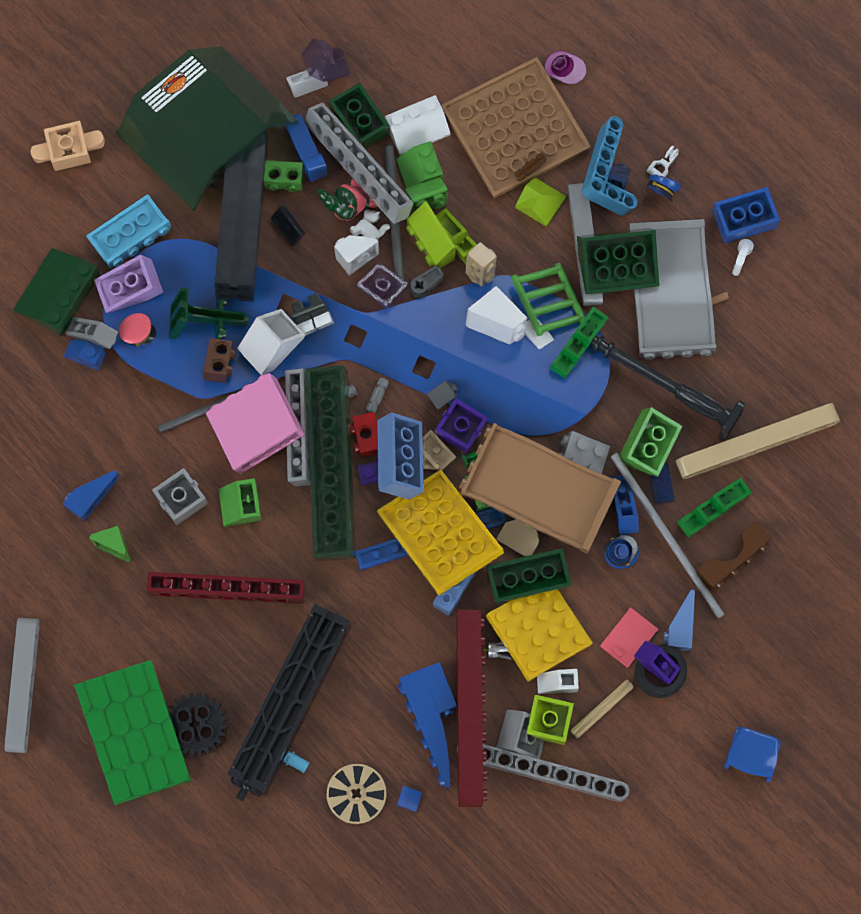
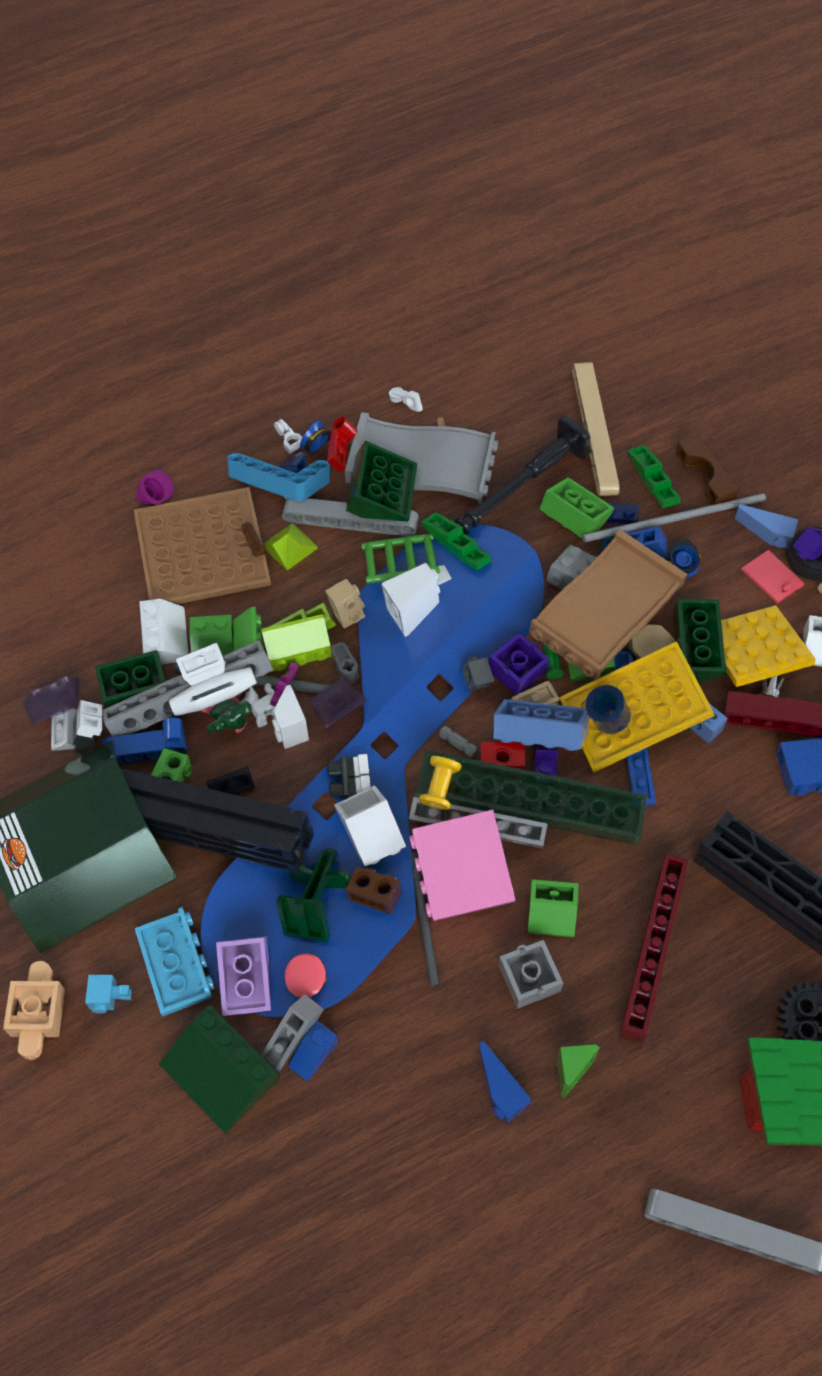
camera: 75 degrees left, 15 degrees down
(93, 190) = (103, 991): none -> medium azure brick
(305, 96) = (86, 725): none -> white hips
(312, 383) = (440, 782): none -> yellow piece
(362, 174) = (208, 681): none -> white plate
(382, 236) = (283, 682): none -> magenta bar
(422, 505) = (601, 702): none -> piece
(669, 208) = (341, 434): none -> red plate
(745, 215) = (367, 382): blue brick -> none

